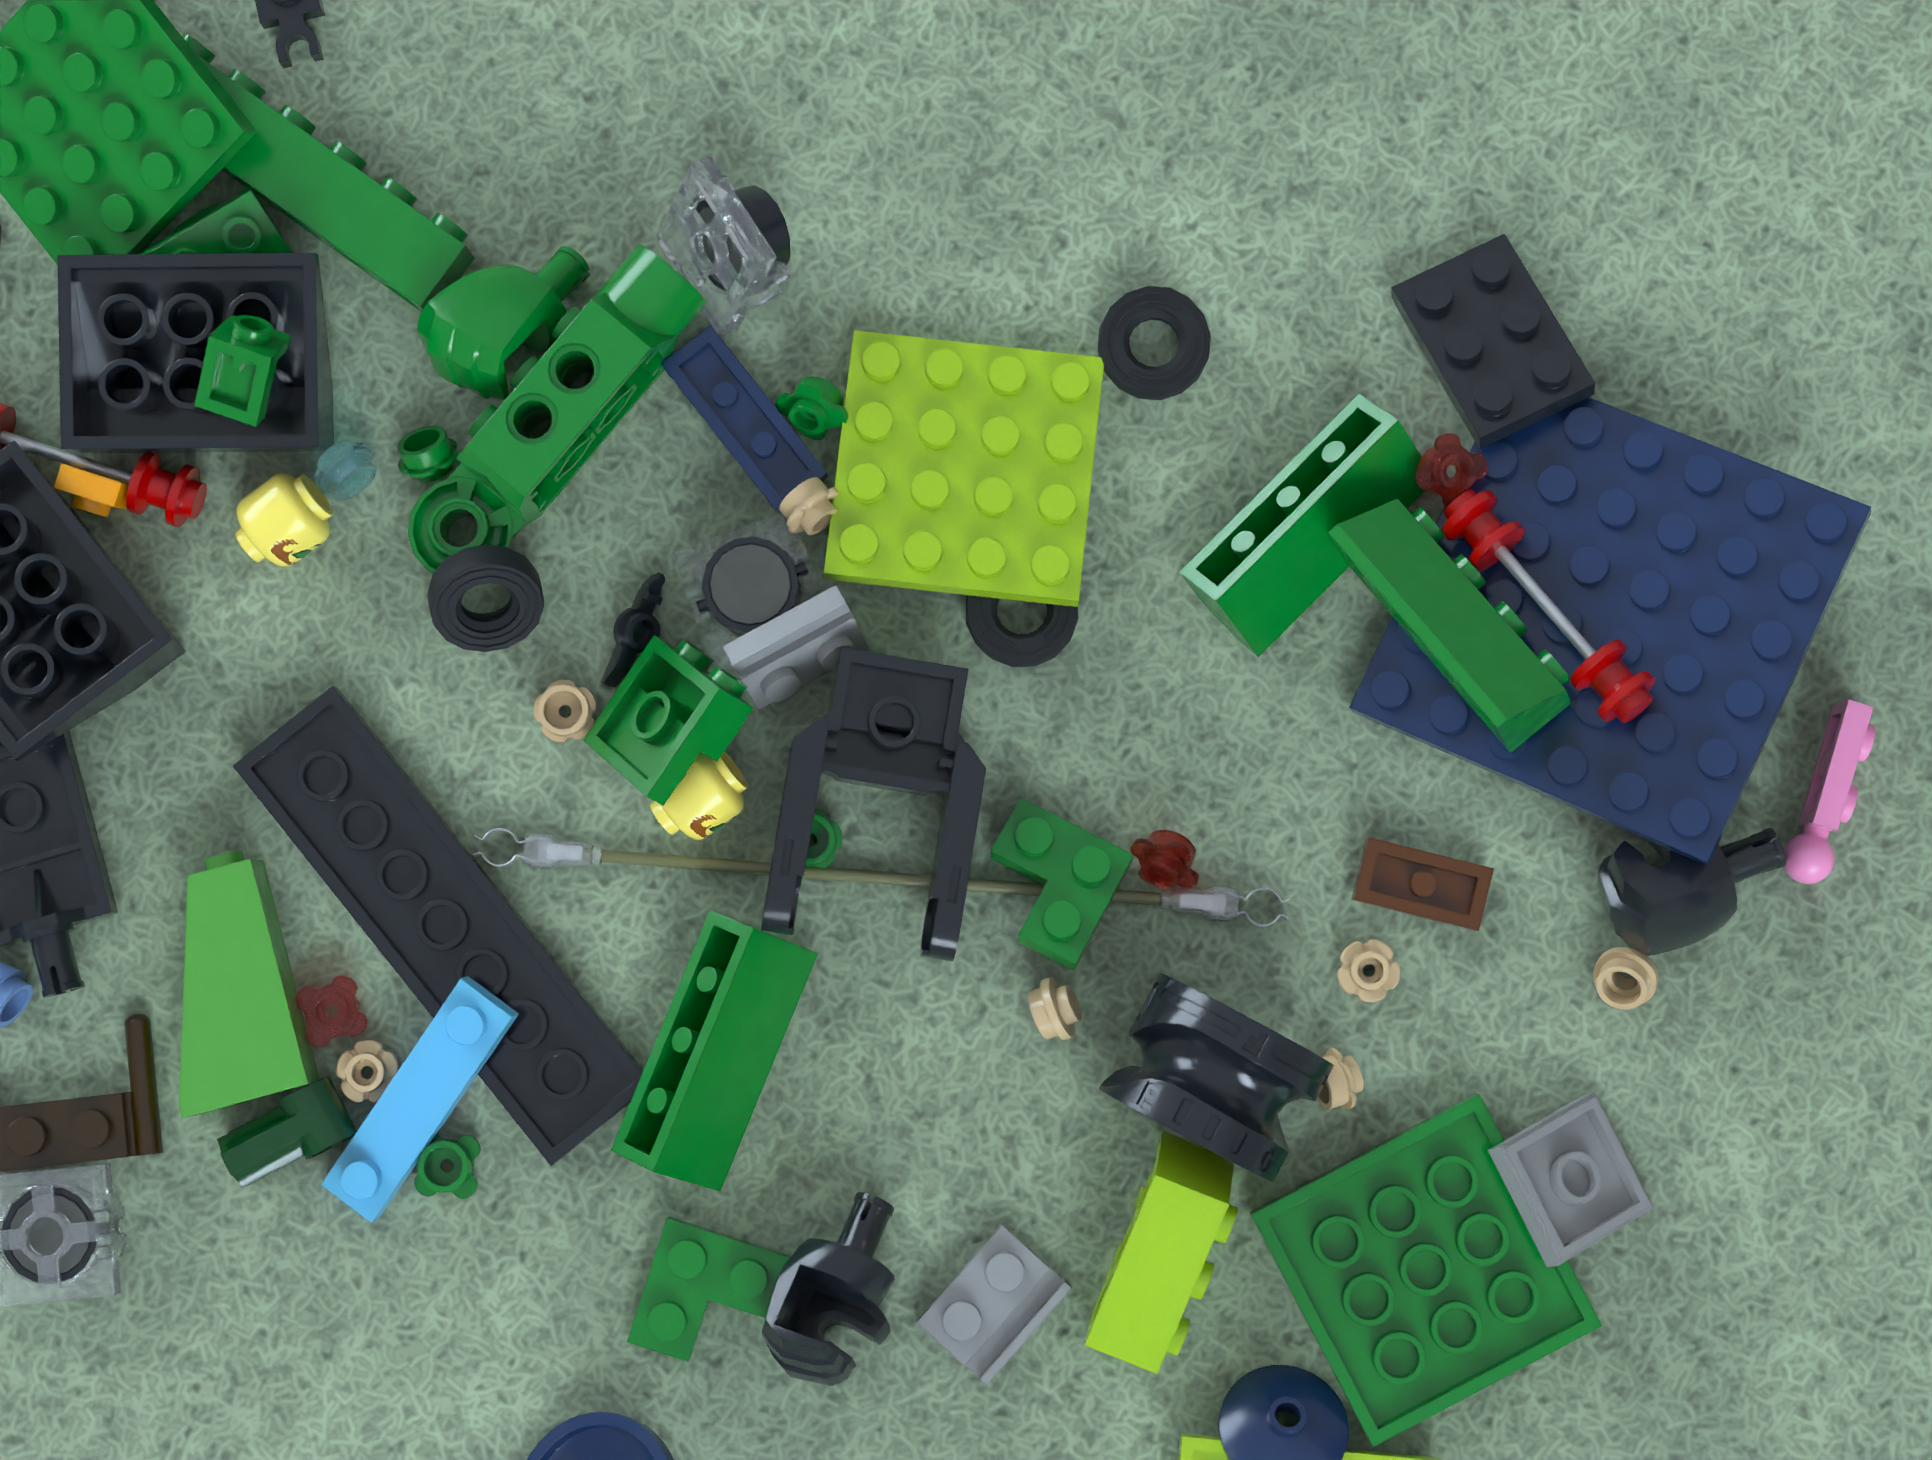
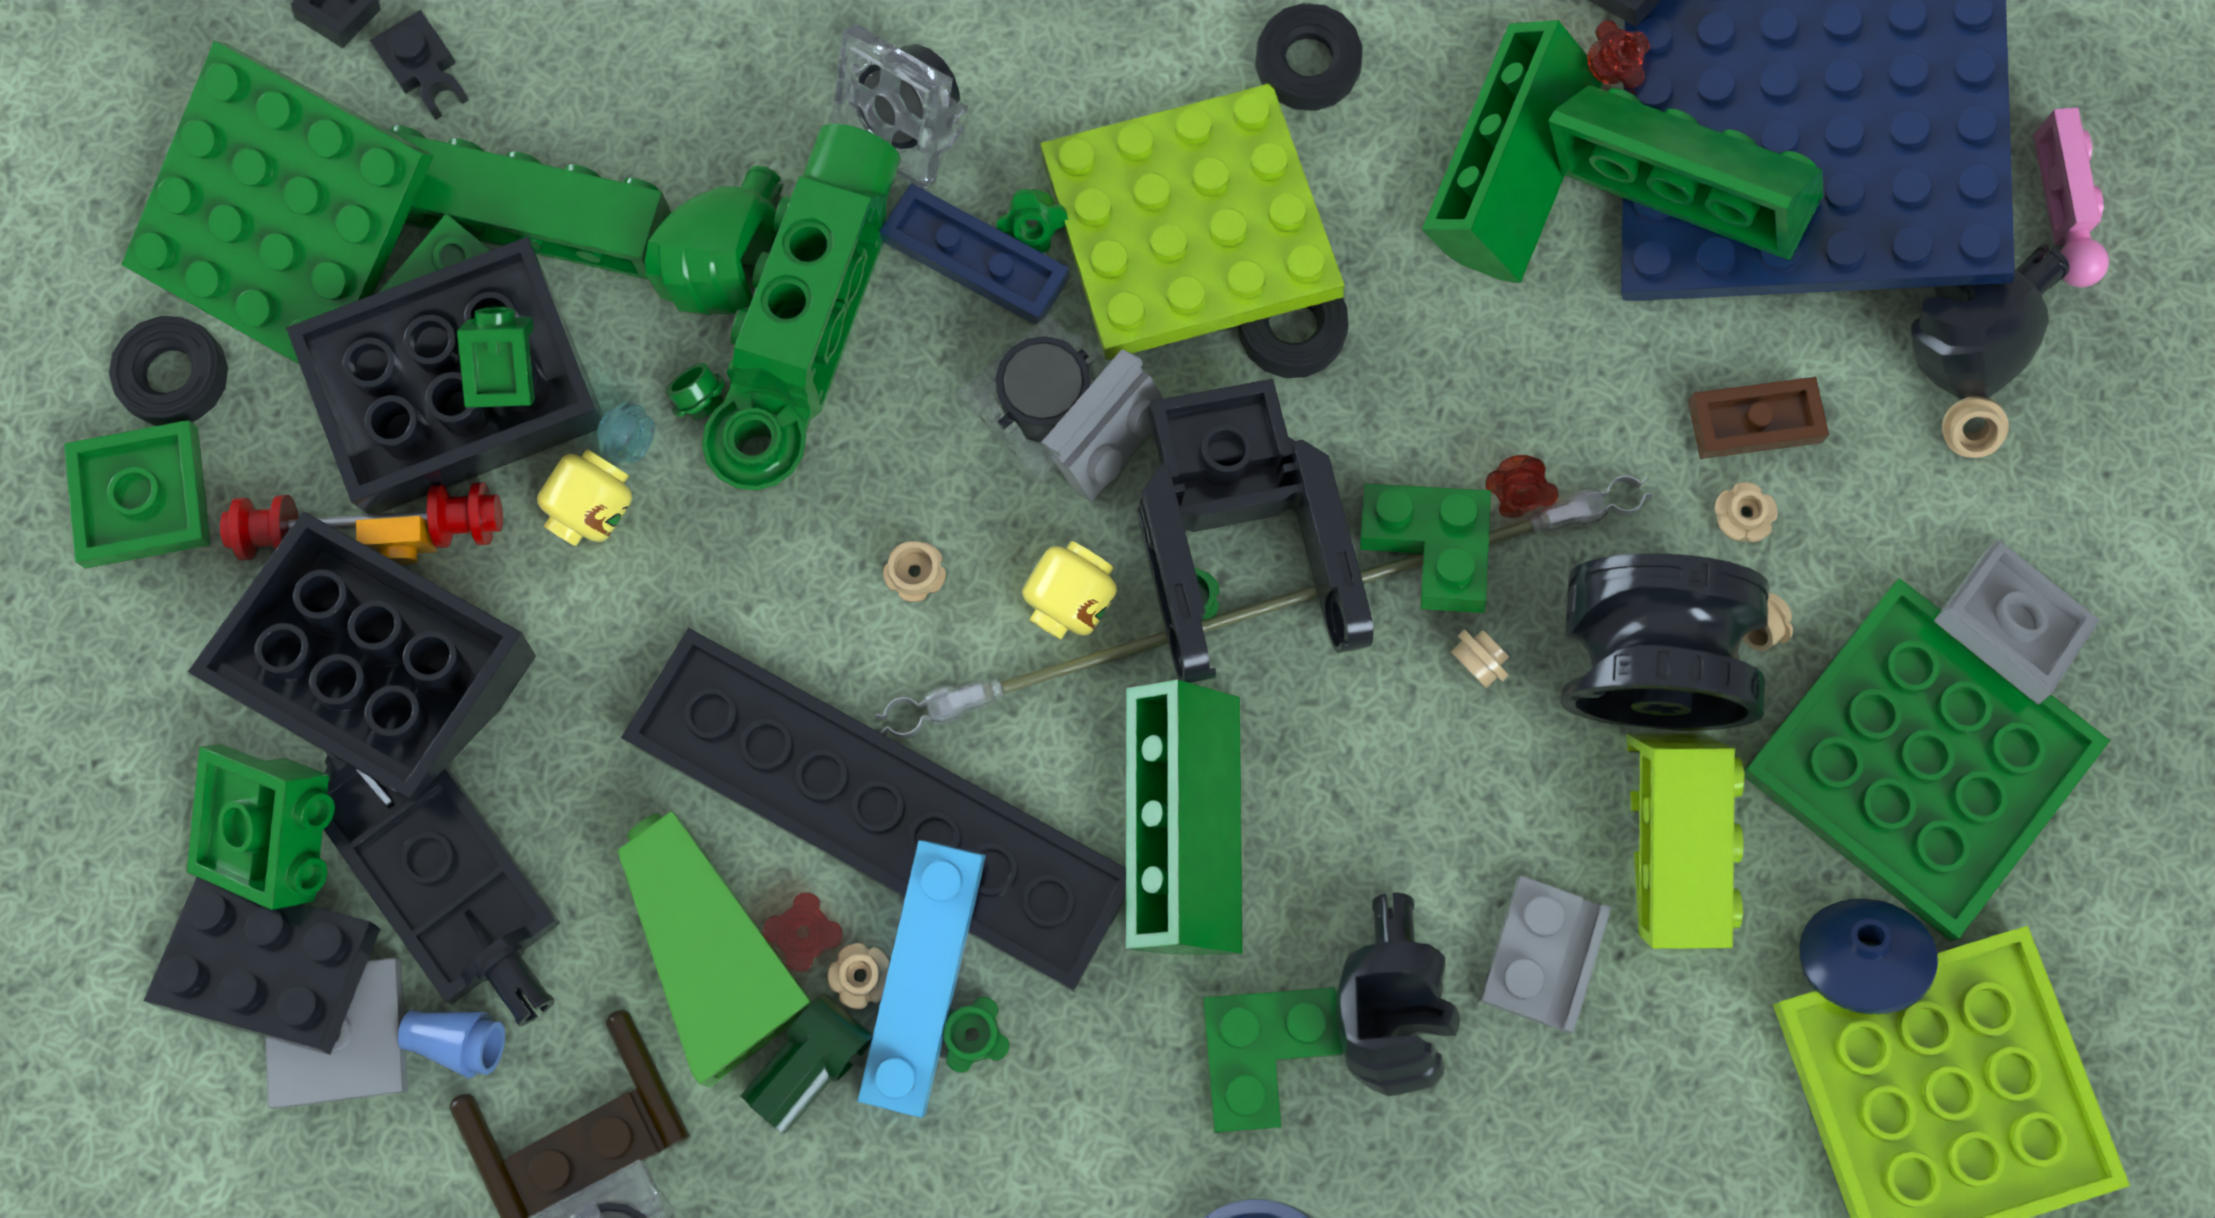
camera: 25 degrees left, 10 degrees down
(478, 567) = (775, 468): black tyre -> none
(634, 629) = (950, 475): black piece -> none
(667, 716) = (1014, 527): green plate -> none
(809, 507) = (1066, 299): tan plate -> none
(1622, 692) = (1843, 148): red axle -> none

